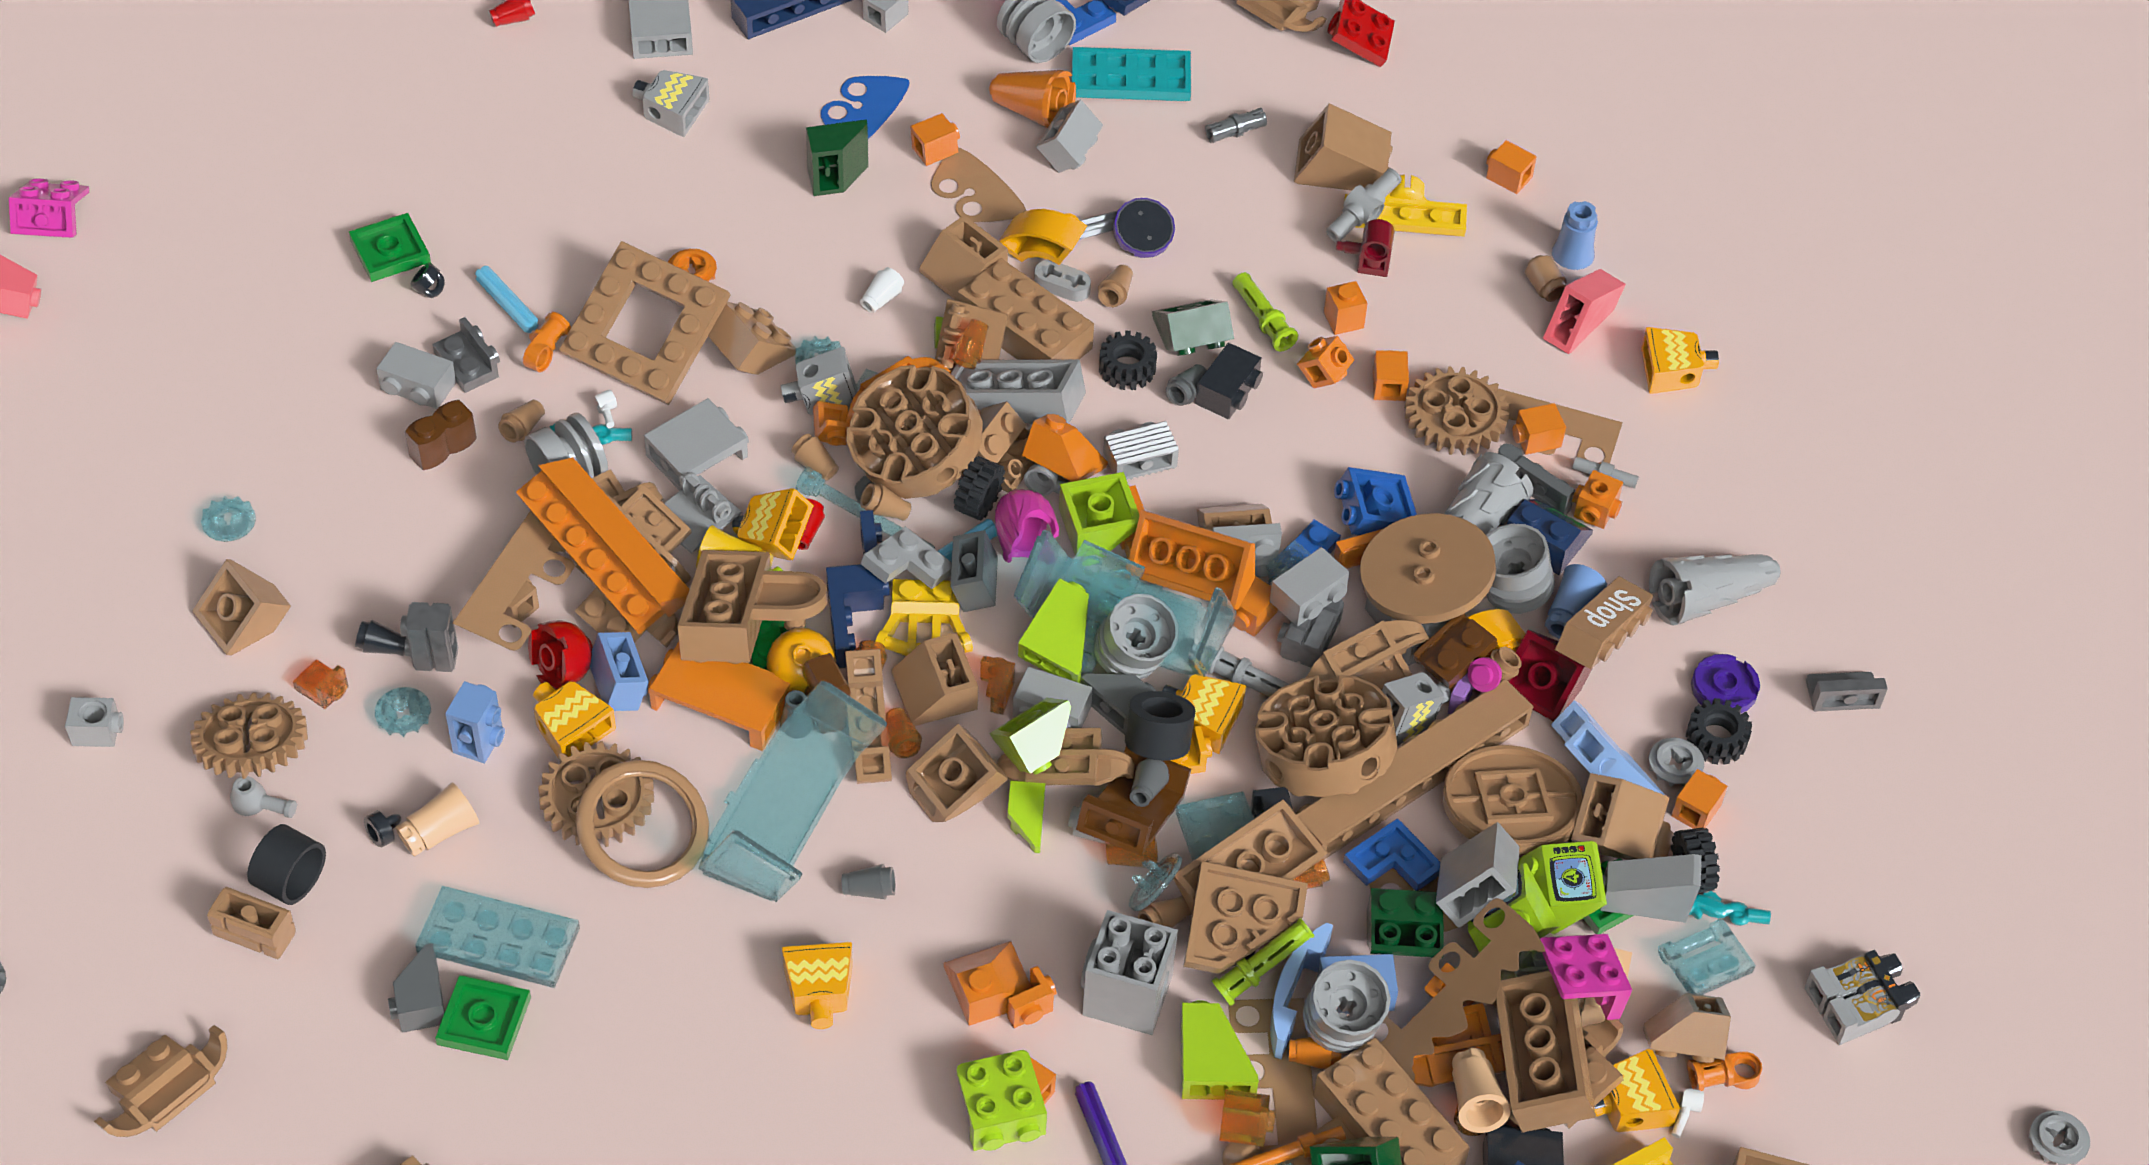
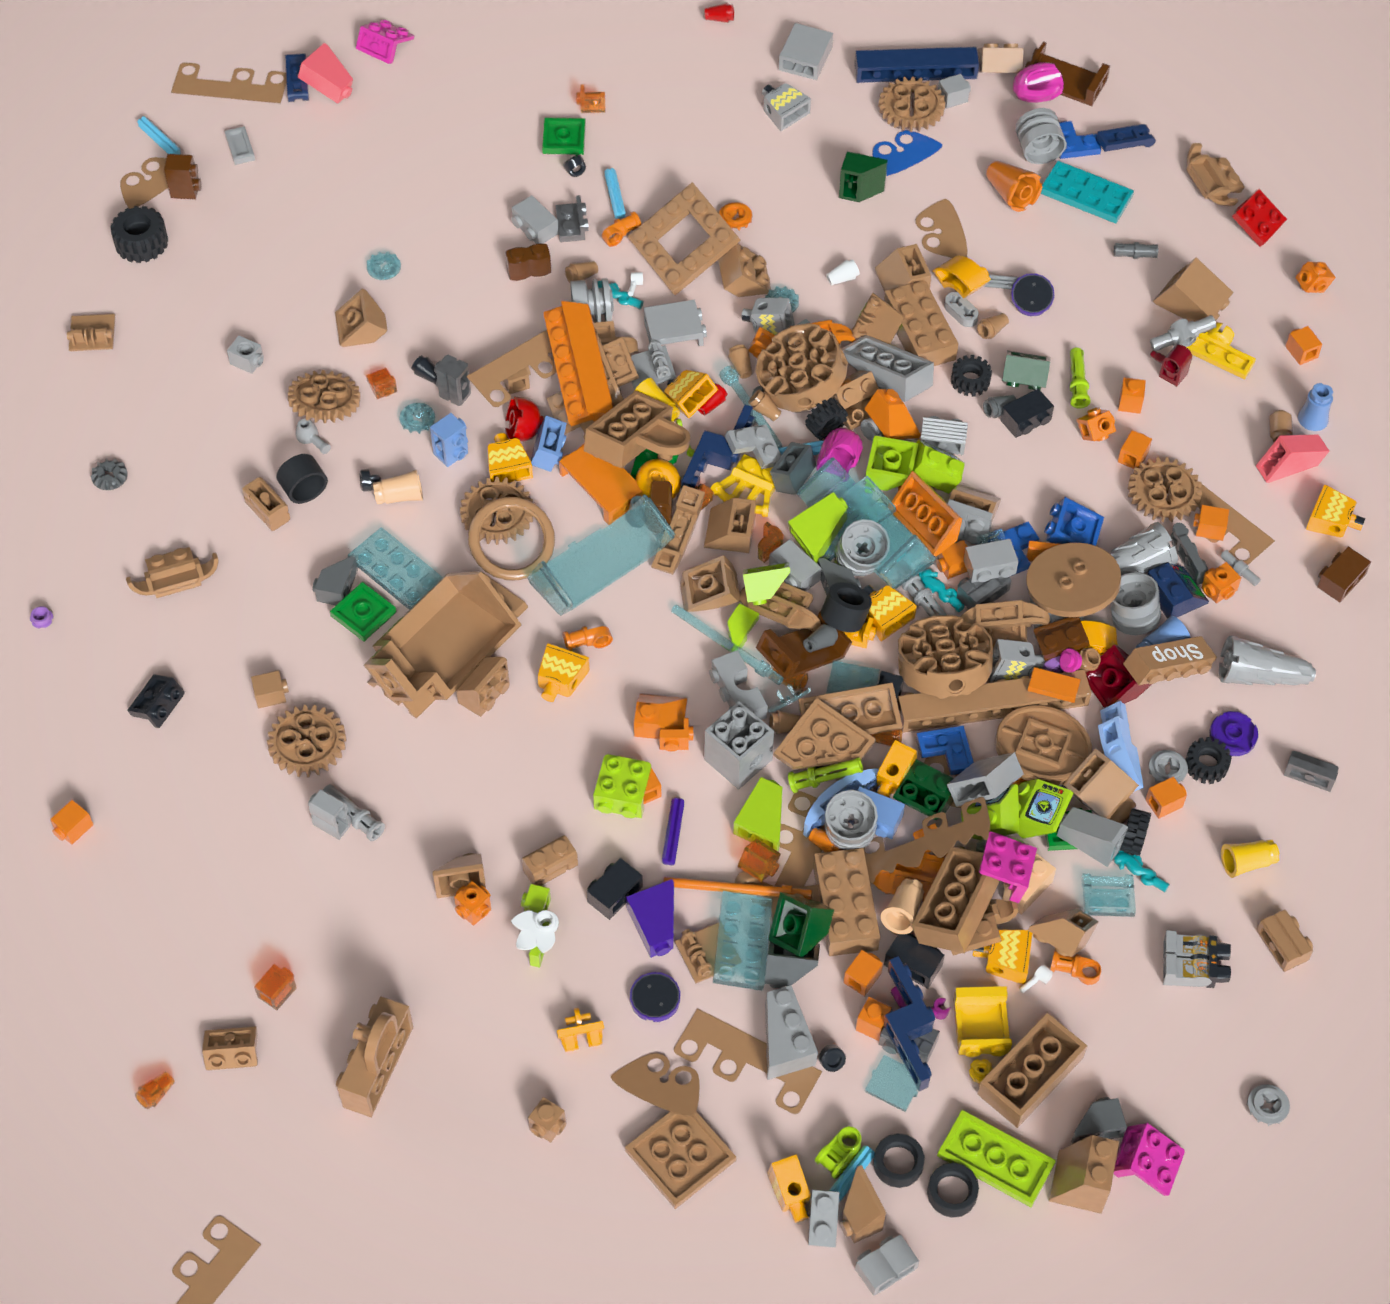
camera: 30 degrees right, 5 degrees up
(400, 187) = (590, 101): none -> clear orange bracket
(627, 1007) = (443, 639): none -> medium nougat panel
(724, 1044) = (484, 685): none -> medium nougat slope
(824, 50) = (927, 104): none -> medium nougat gear
(840, 910) = (588, 637): none -> orange connector
(870, 882) = (624, 628): dark grey cone -> none
(902, 734) = (694, 549): clear orange cone -> none
(934, 139) = (933, 188): orange brick -> none
(970, 346) = (872, 328): clear orange cone -> none
(1049, 882) = (728, 673): none -> light grey arch
(1070, 136) = (1019, 218): light grey brick -> none
(1091, 855) = (761, 667): none -> clear light blue bar
(1165, 492) = (938, 467): none -> lime slope
(1267, 658) = (946, 595): none -> teal animal
(1351, 913) = (895, 768): none -> light orange torso
(1474, 78) = (1315, 277): none -> orange brick
(1483, 714) = (1054, 685): none -> orange tile
(1732, 429) = (1343, 574): none -> reddish brown brick
(1841, 833) = (1248, 856): none -> yellow plant
(1950, 918) = (1285, 940): none -> medium nougat brick

